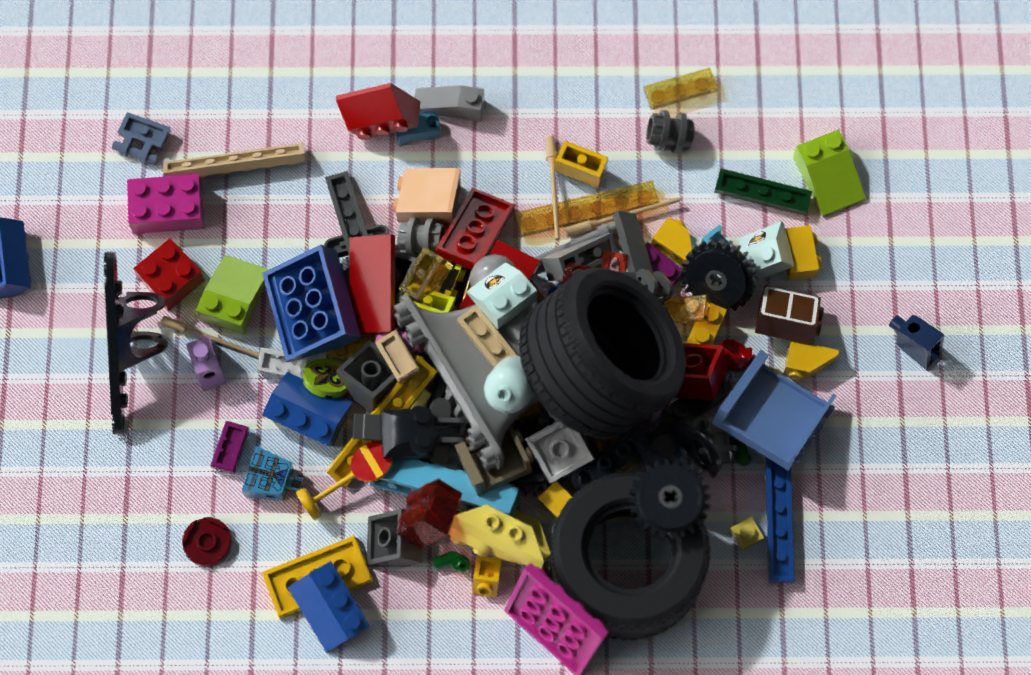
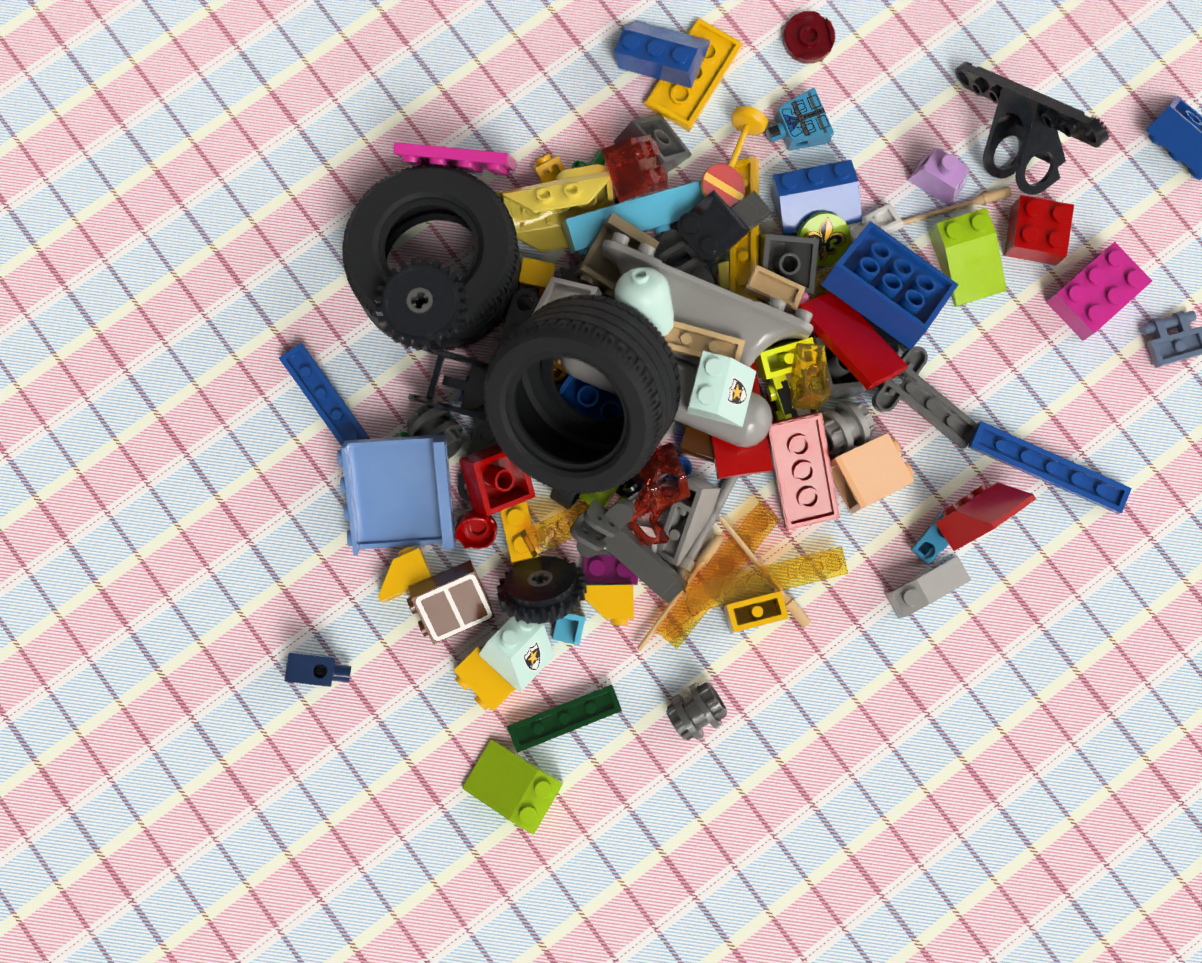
camera: 140 degrees right, 10 degrees up
(230, 447) = (856, 124): magenta plate -> none
(237, 161) = (1073, 377): tan plate -> none
(303, 117) = (1049, 467): none -> blue plate
(558, 179) = (765, 579): none -> clear yellow plate
(680, 88) = (721, 769): clear yellow plate -> none
(746, 533) = (352, 374): light yellow plate -> none

